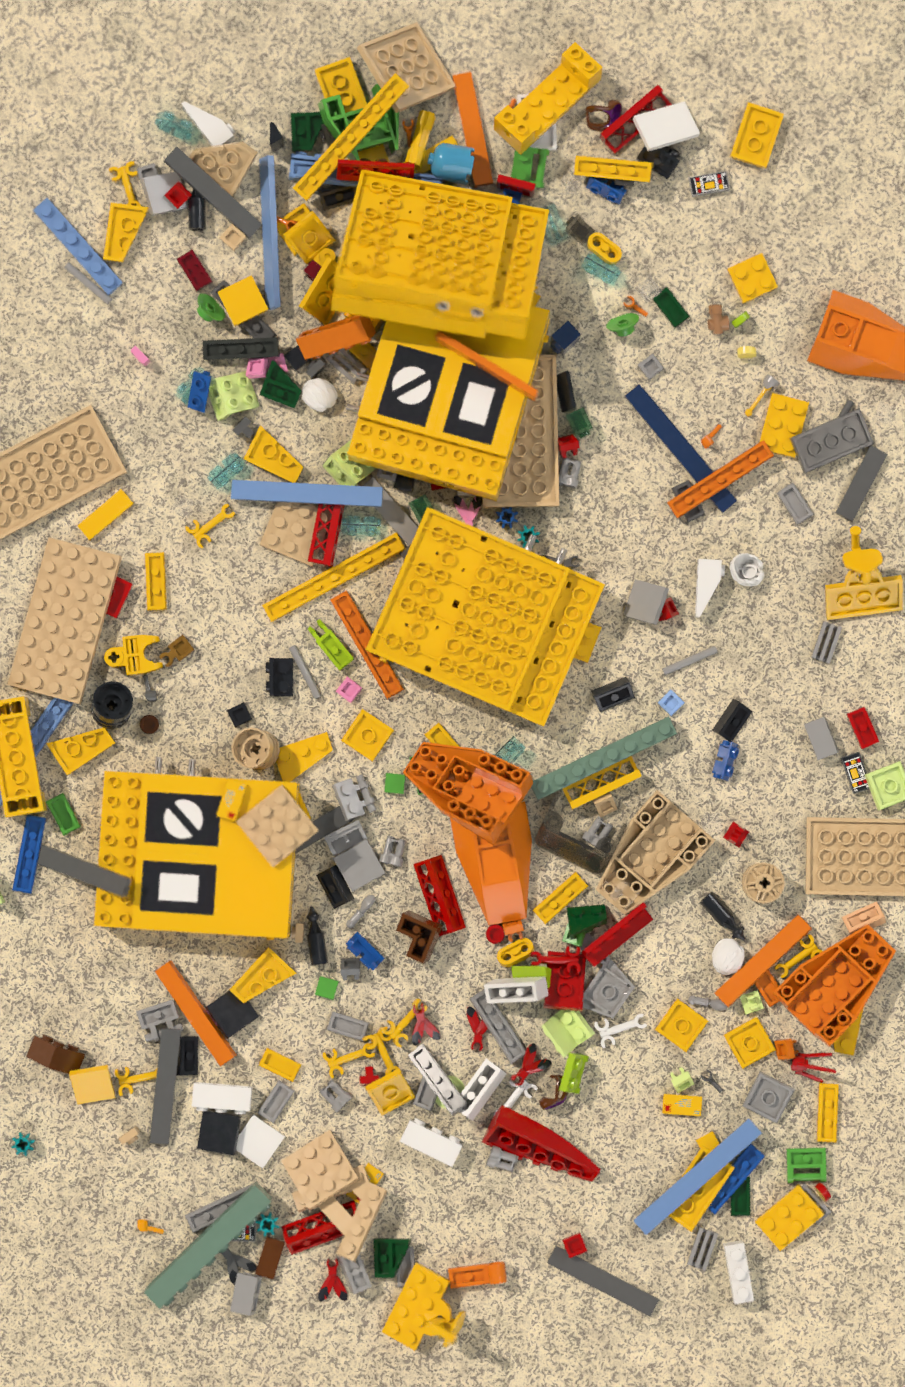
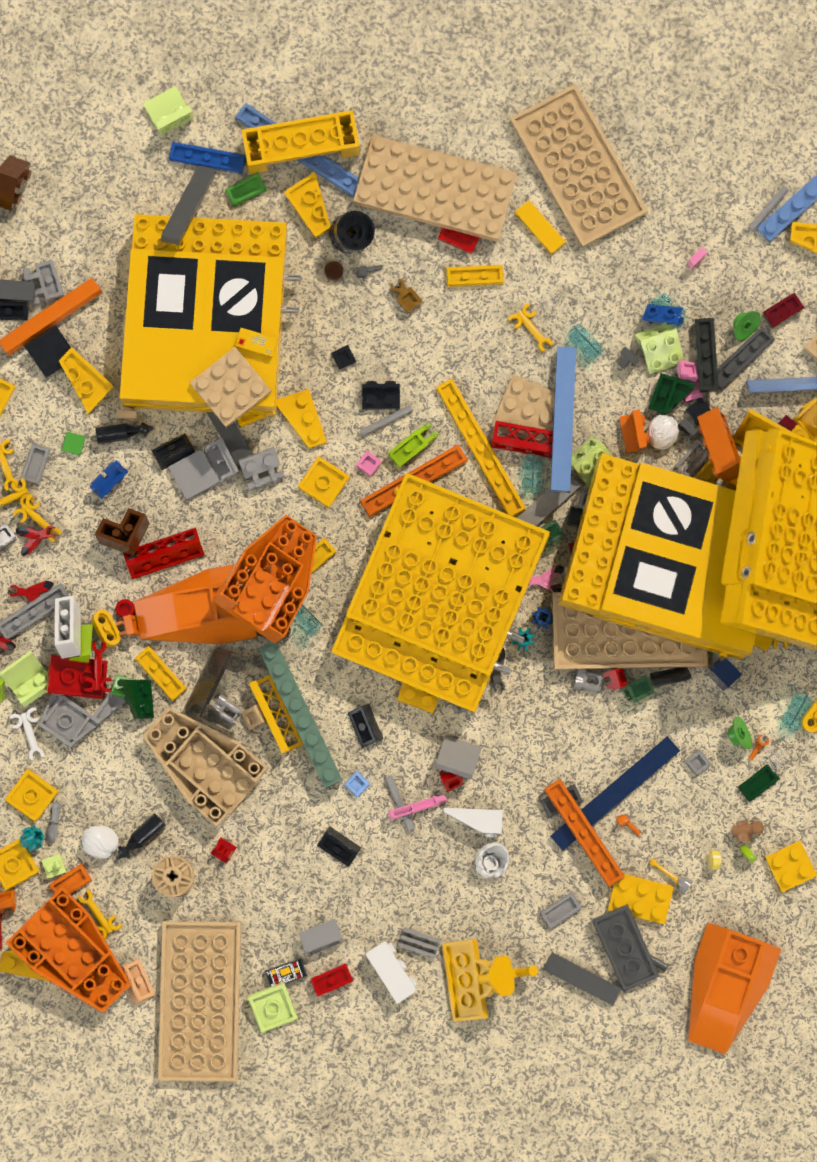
camera: 85 degrees right, 5 degrees down
(126, 655) = (401, 253): yellow piece -> none
(243, 301) = (754, 356): yellow tile -> none
(246, 744) = (309, 370): tan wheel -> none
(272, 457) = (599, 387): yellow wing -> none
(319, 423) = (633, 432): none -> orange bracket
(350, 966) = (93, 465): dark grey tile -> none
(365, 905) = (155, 481): light grey piece -> none
(393, 859) = (201, 504): light grey piece -> none
(394, 783) = (275, 508): bright green tile -> none
(486, 365) = (693, 589): orange tile -> none
(617, 935) = (122, 729): red fence -> none
(694, 644) = (415, 807): none -> bright pink piece
(724, 1023) = (31, 838): none -> teal gear
(729, 752) = (289, 838): blue hinge -> none
(763, 961) = (94, 877): orange tile -> none
(854, 668) = (392, 971): none -> white brick

